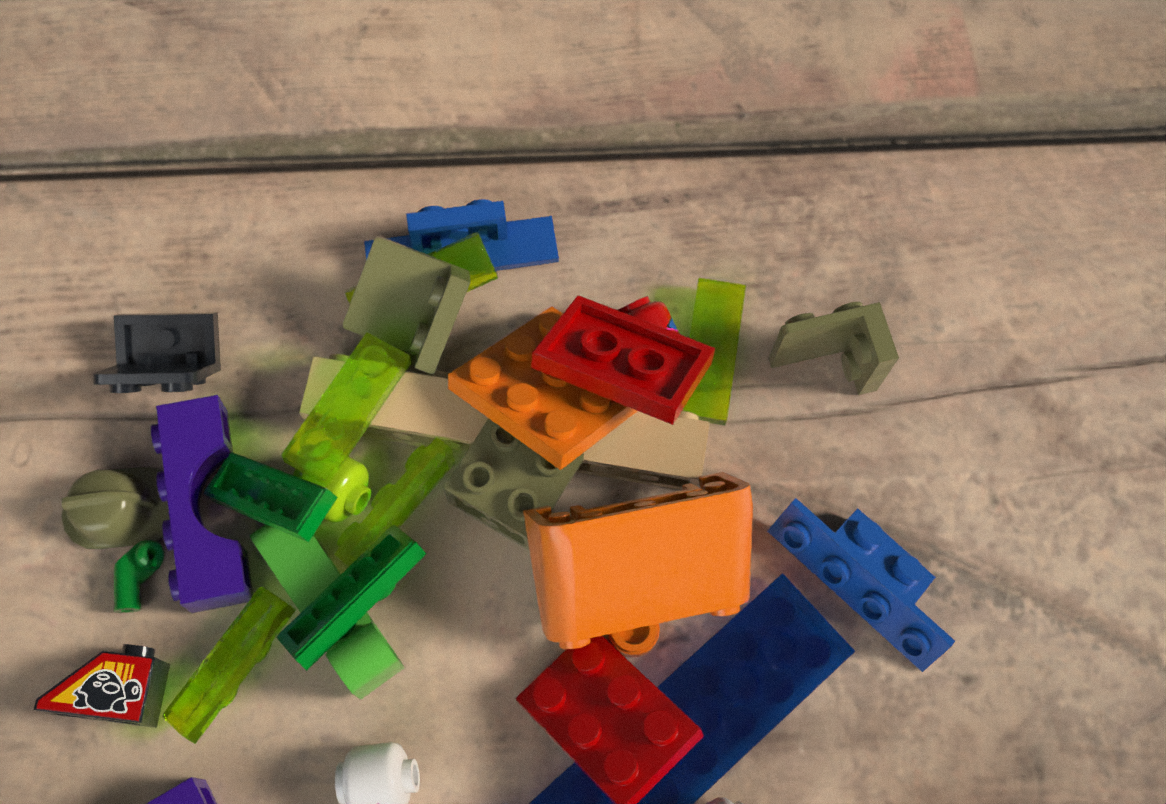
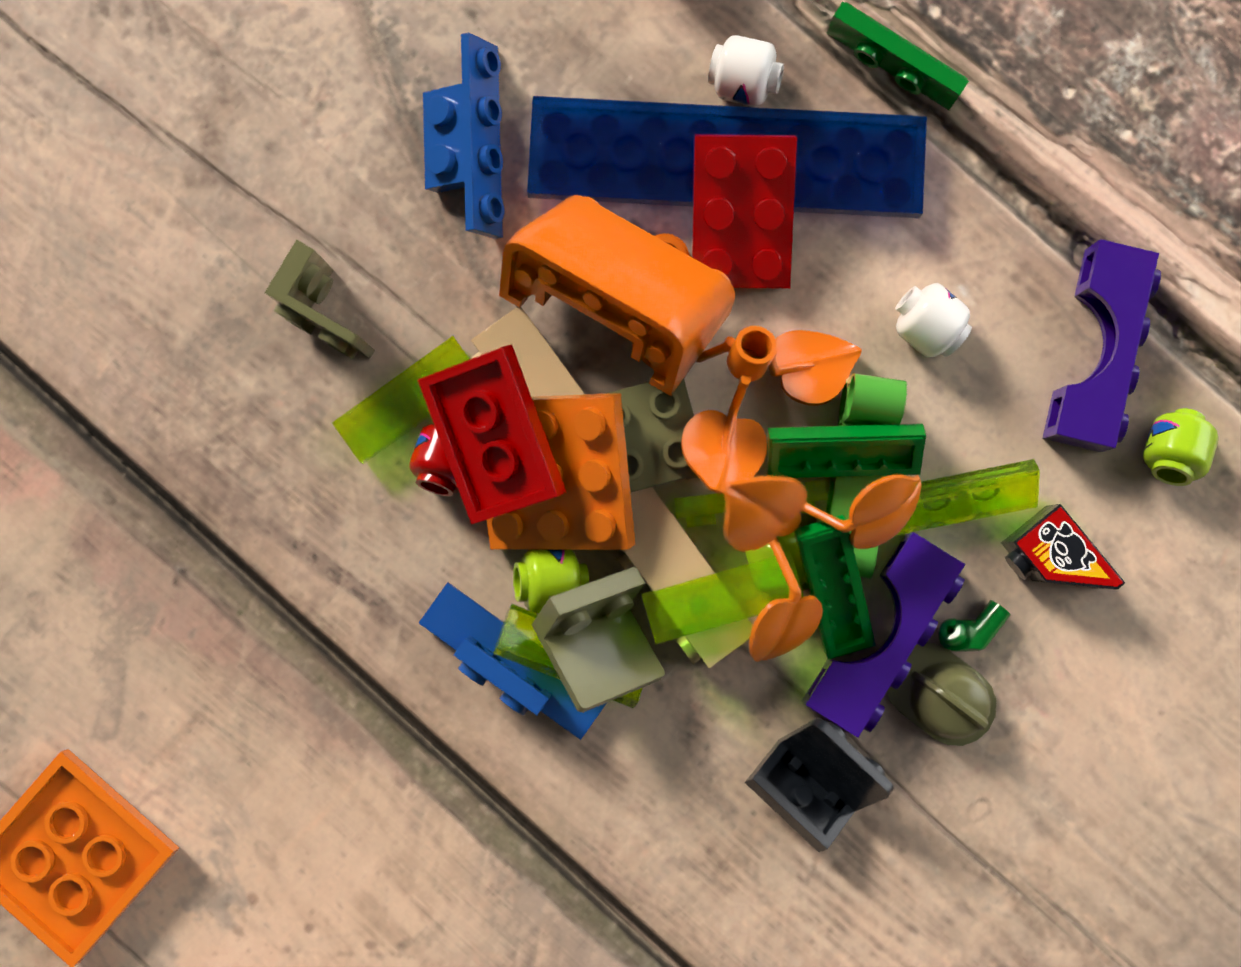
camera: 130 degrees left, 15 degrees up
(363, 455) = (770, 507): none -> orange plant
(438, 650) = (811, 373): none -> orange plant
(486, 318) = (546, 575): none -> lime head

